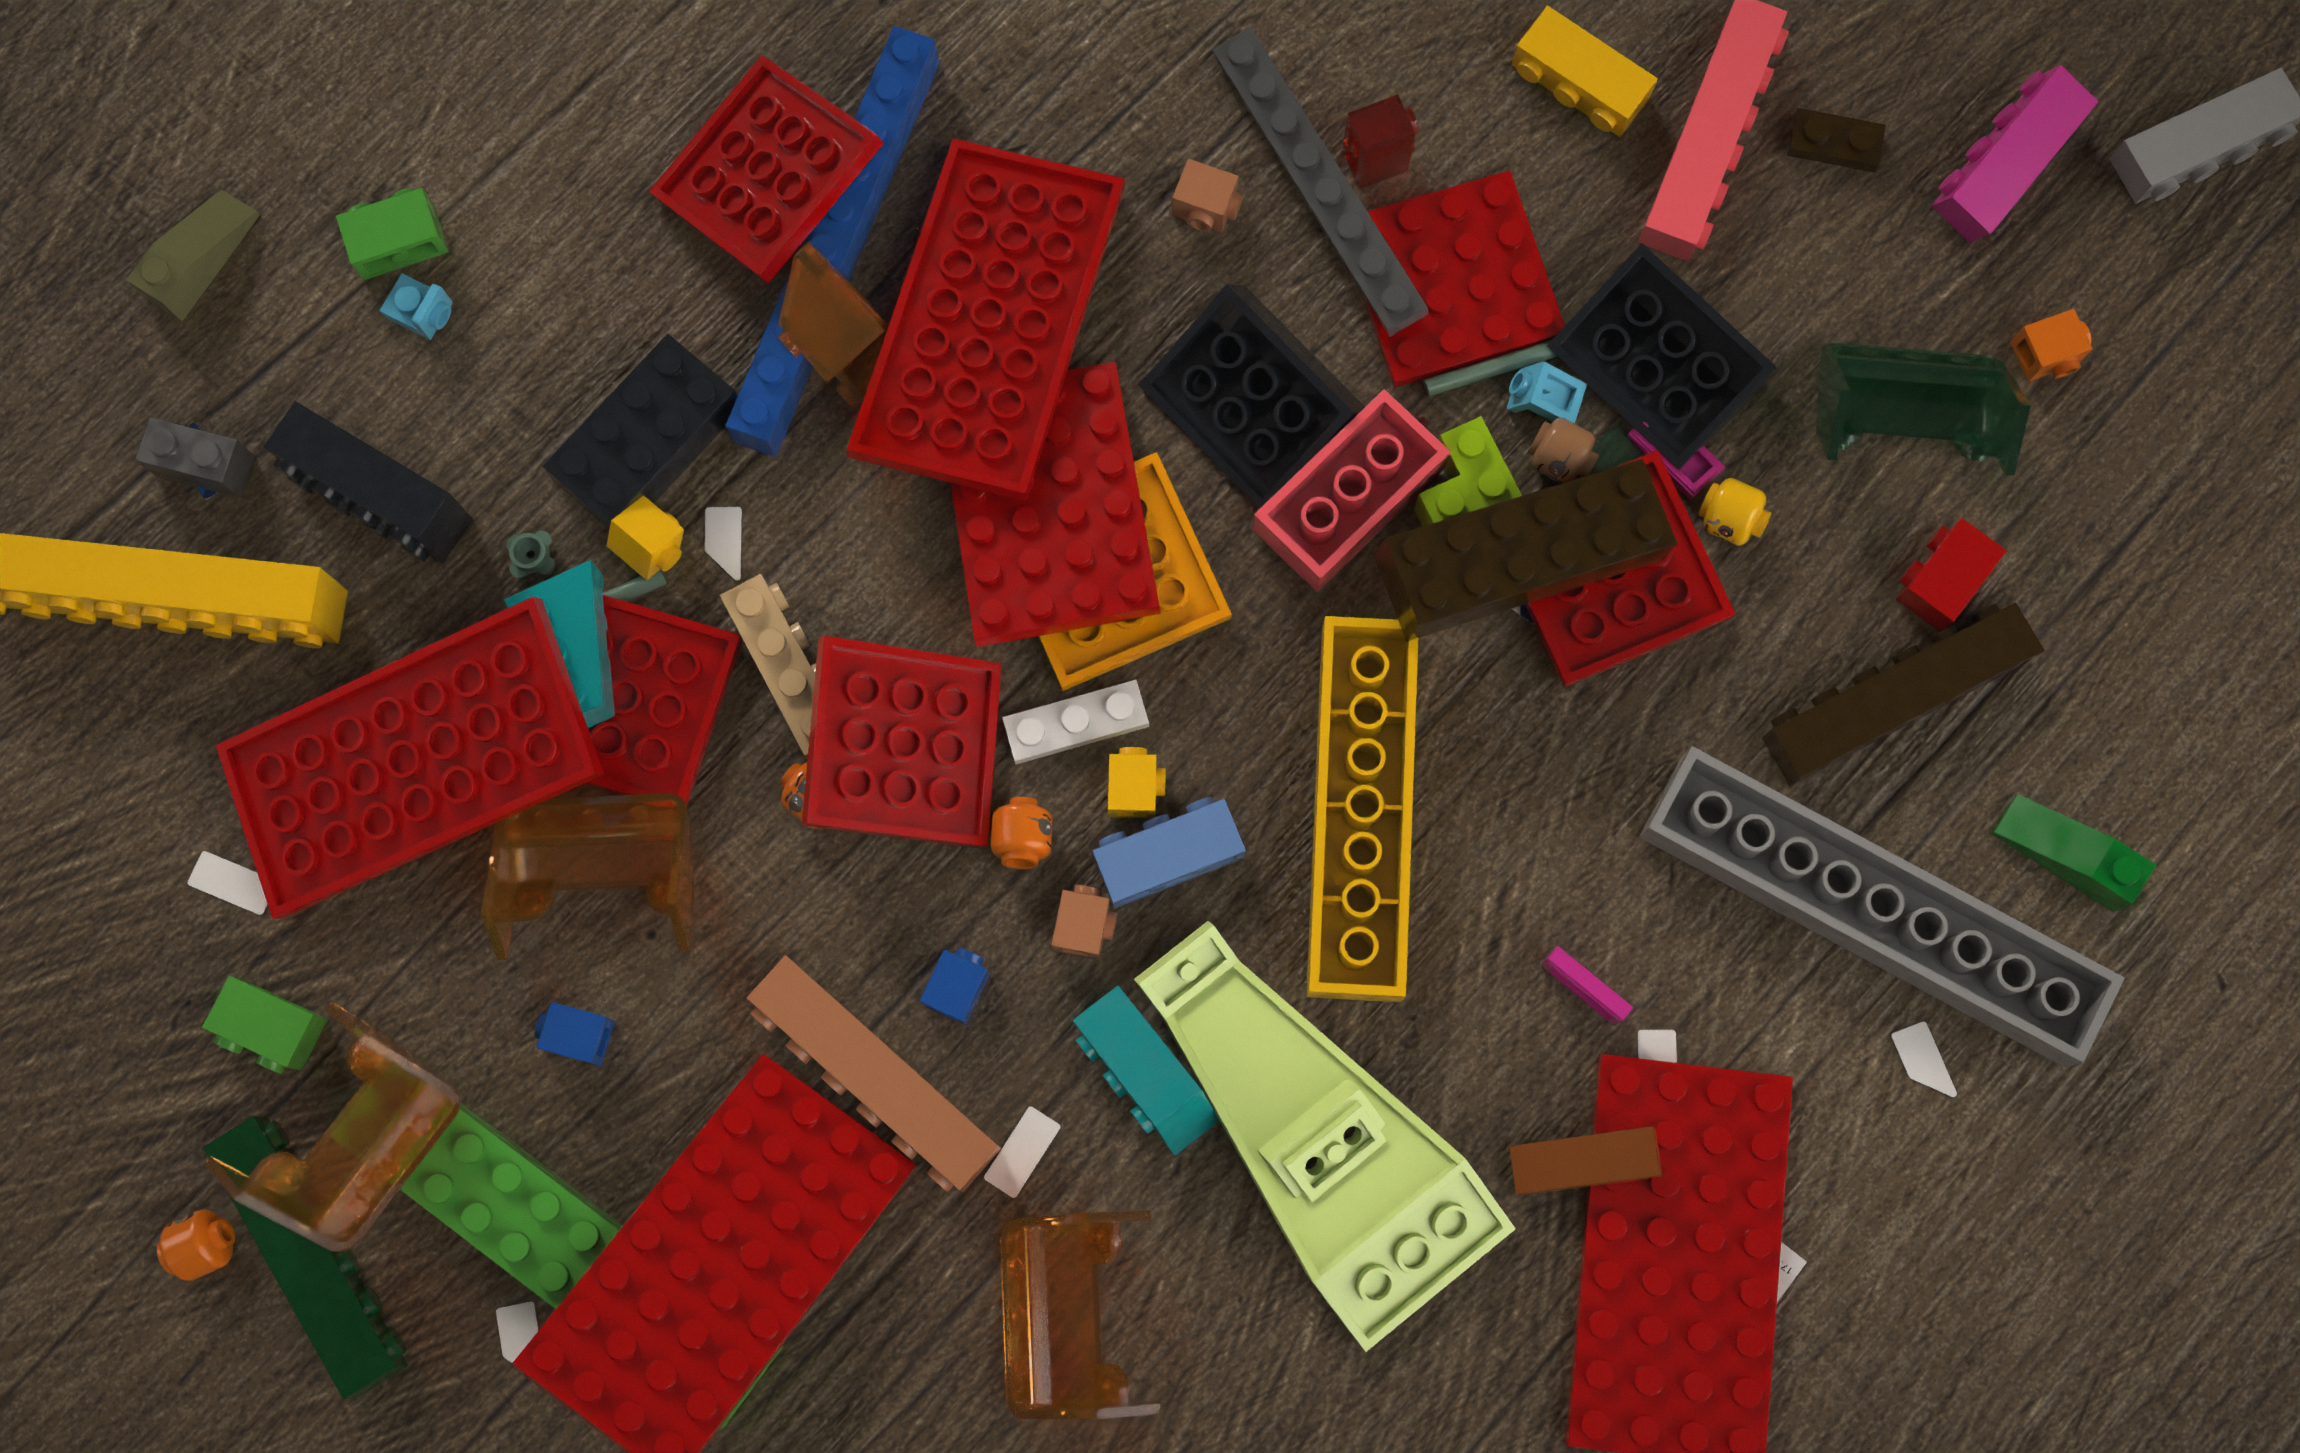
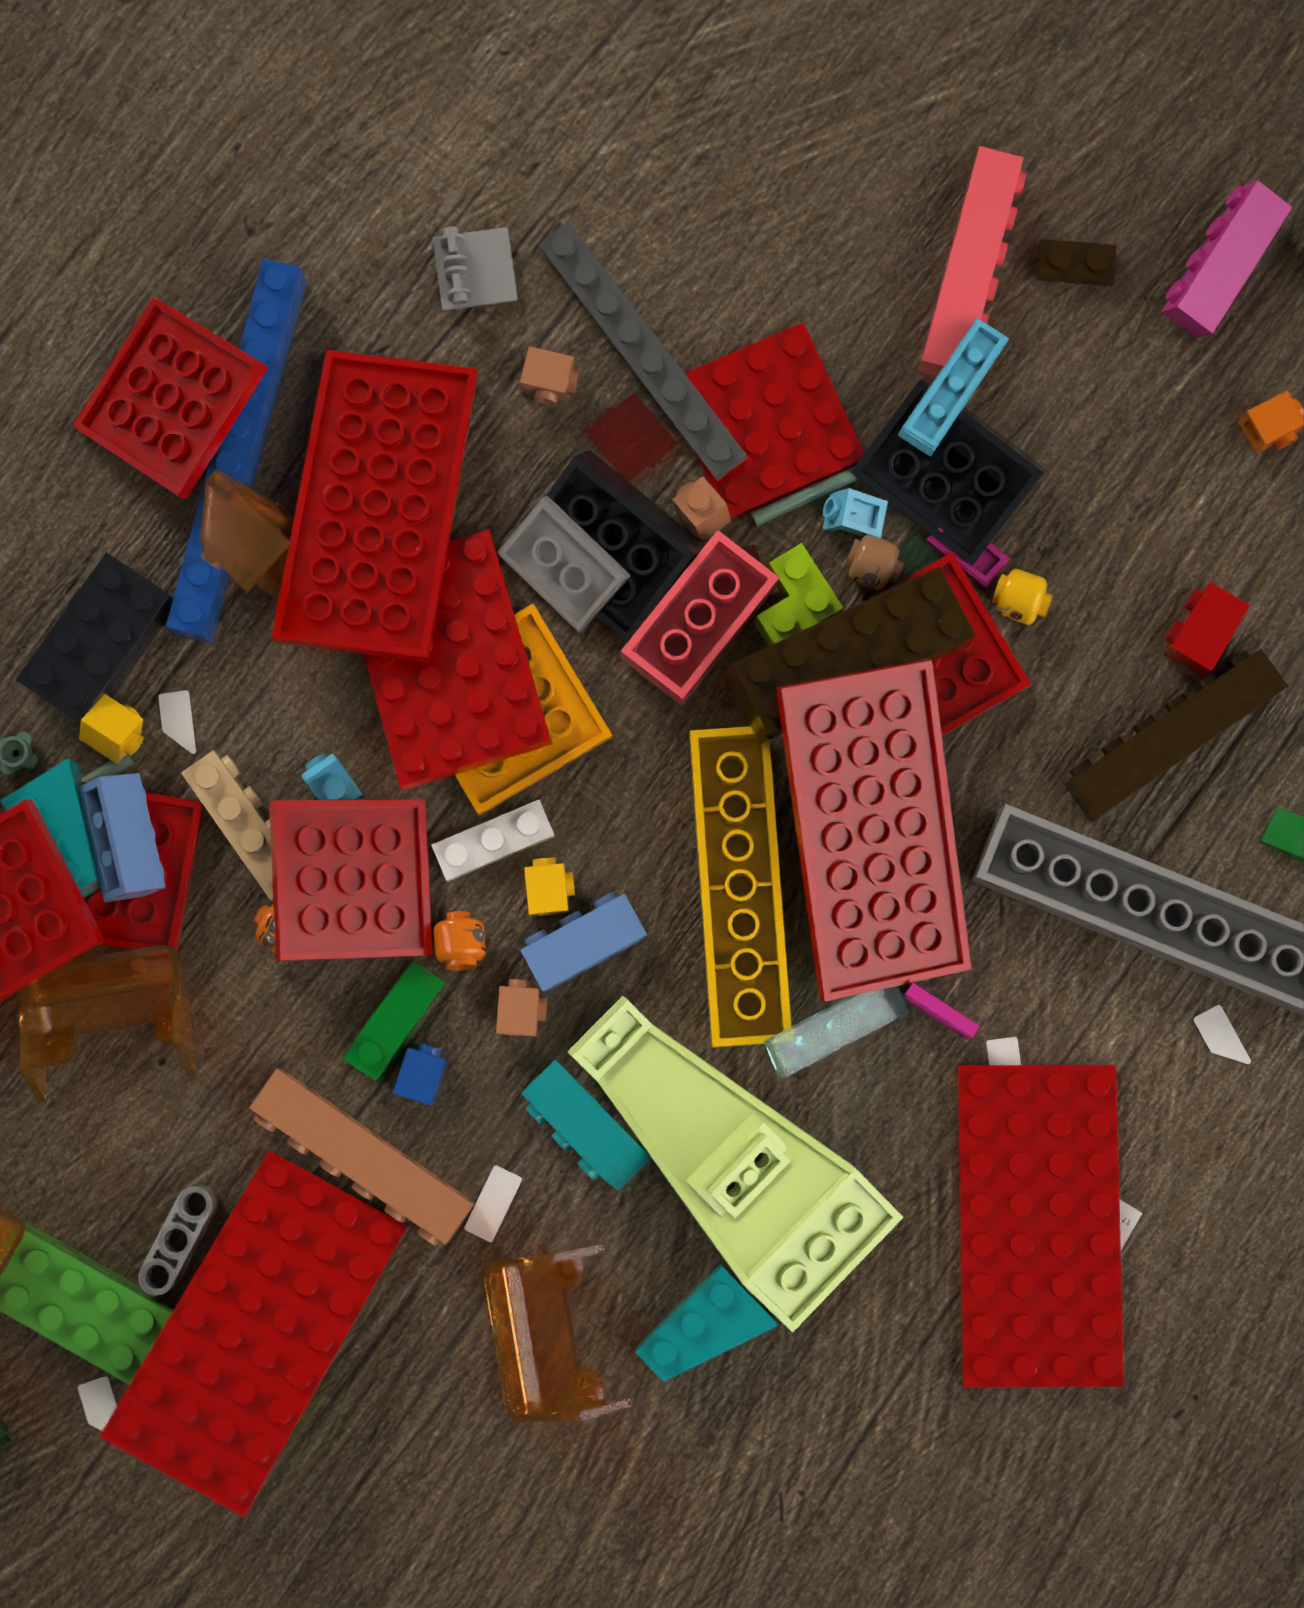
camera: 10 degrees left, 5 degrees up
(574, 1033) = (109, 1154): blue brick -> none
(619, 1155) = (162, 1251): none -> light grey beam
(640, 660) = (122, 837): none -> medium blue brick
(891, 624) = (330, 779): none -> medium azure bracket
(931, 920) = (394, 1022): none -> green slope
(1135, 68) = (474, 268): none -> light grey hinge
(1197, 410) = (563, 564): none -> light grey tile
(1261, 1328) = (703, 1325): none -> teal wedge
(1293, 279) = (631, 437): none -> clear red piece
(1367, 365) = (701, 509): none -> nougat brick
(1379, 140) = (690, 311): clear red brick -> none
(1459, 987) = (834, 1029): none -> clear light blue tile
(1532, 755) = (874, 828): none -> plate
(1583, 72) = (856, 228): yellow brick -> none
(1586, 1161) = (954, 1156): dark orange tile -> none
(1679, 256) = (953, 387): none -> medium azure tile
(1921, 396) = (1166, 477): clear green windscreen -> none

